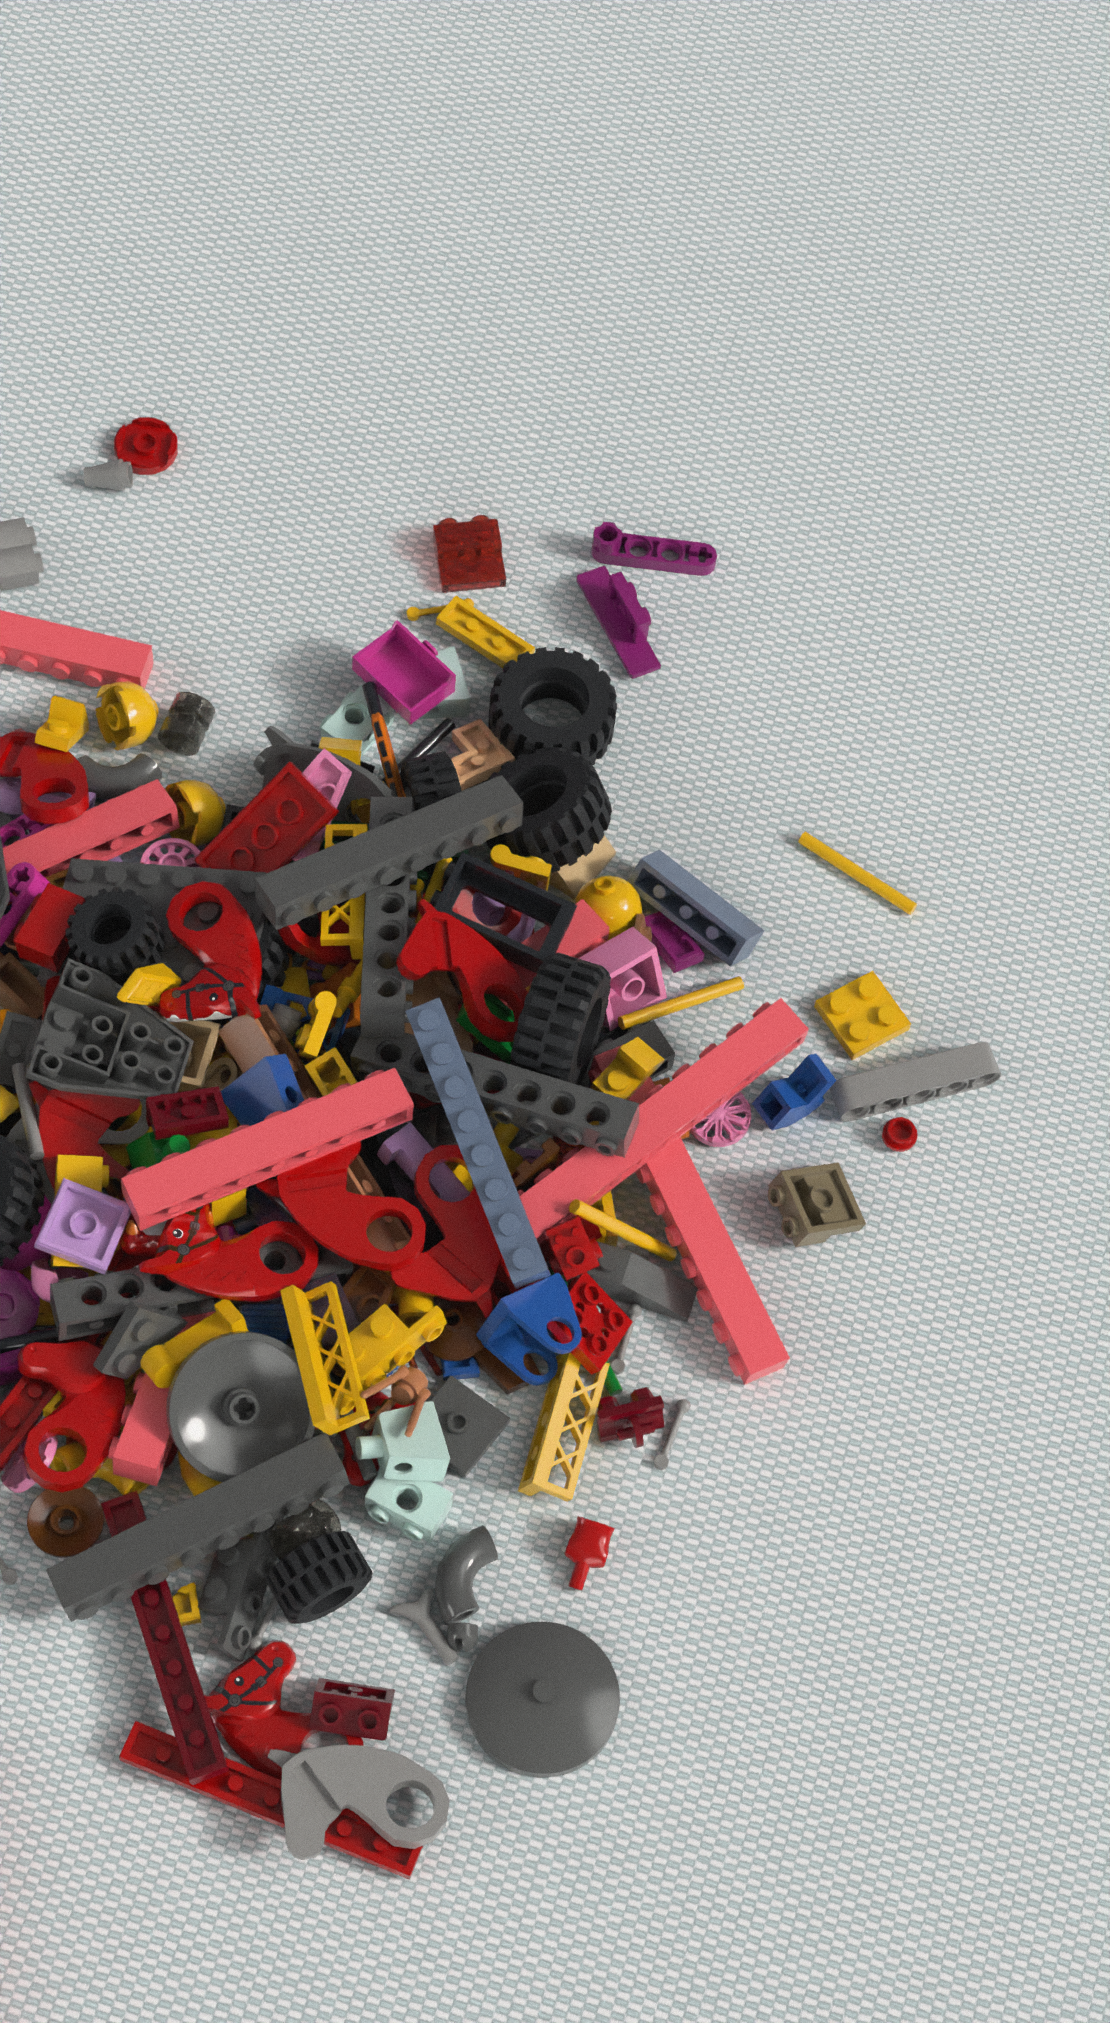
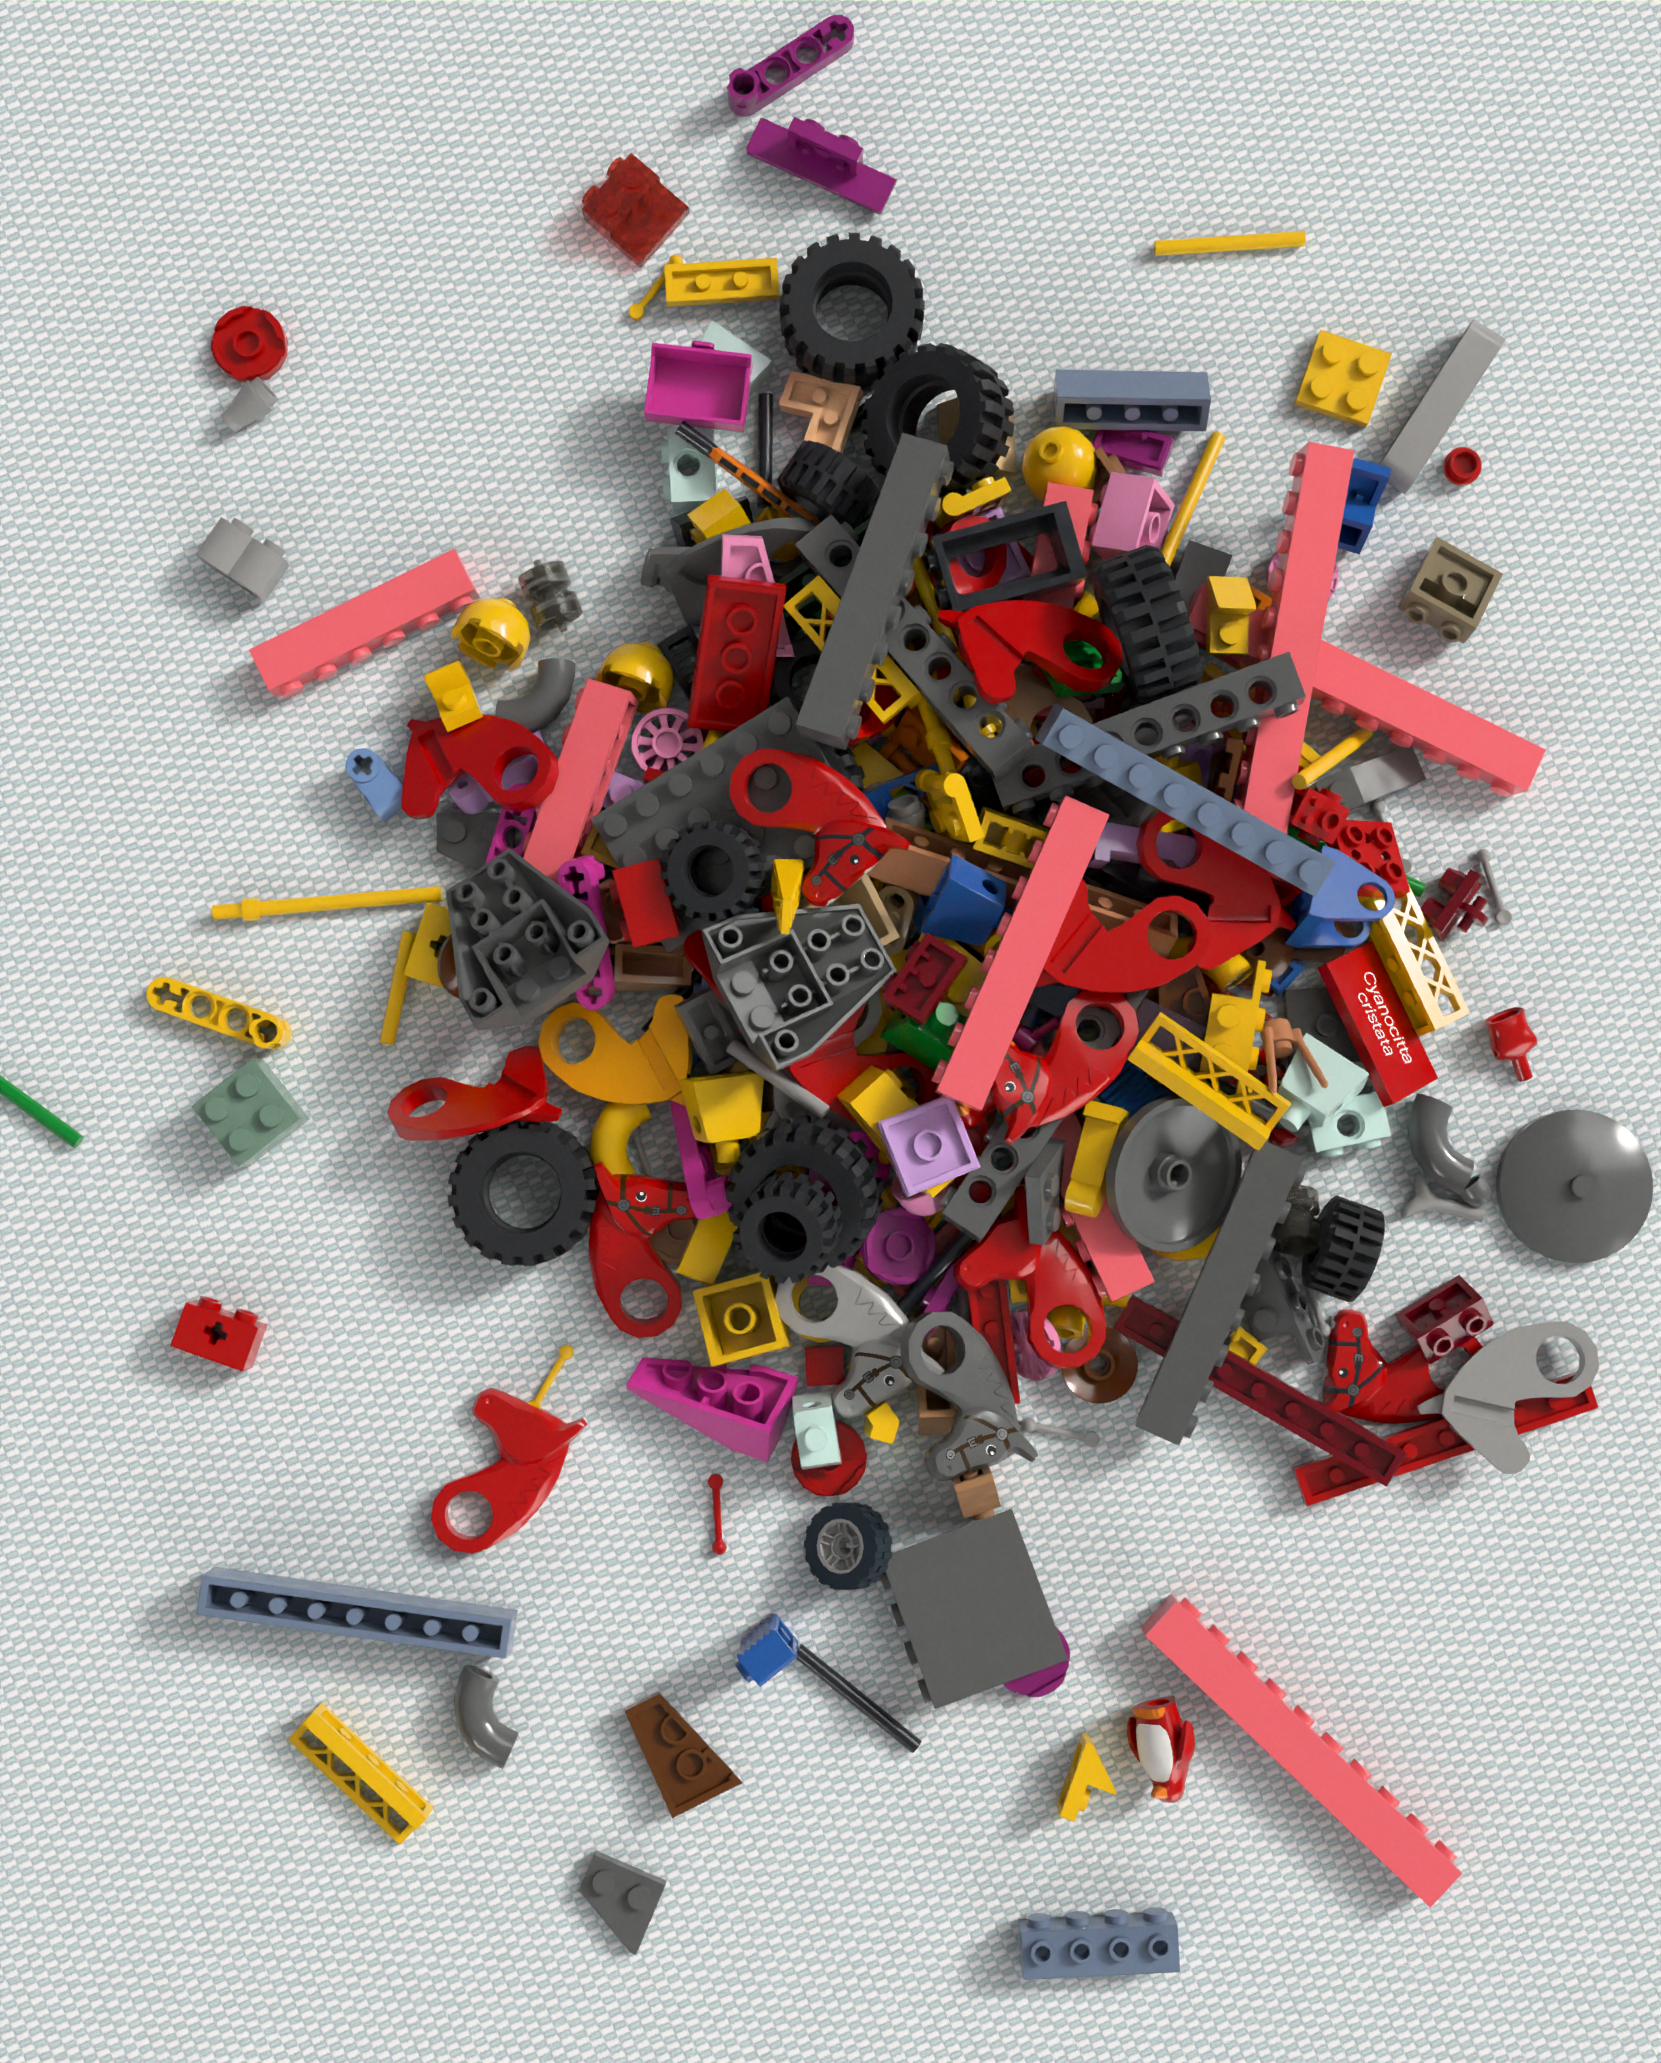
camera: 30 degrees left, 25 degrees up
(495, 1449) = (1377, 1023): none -> red tile

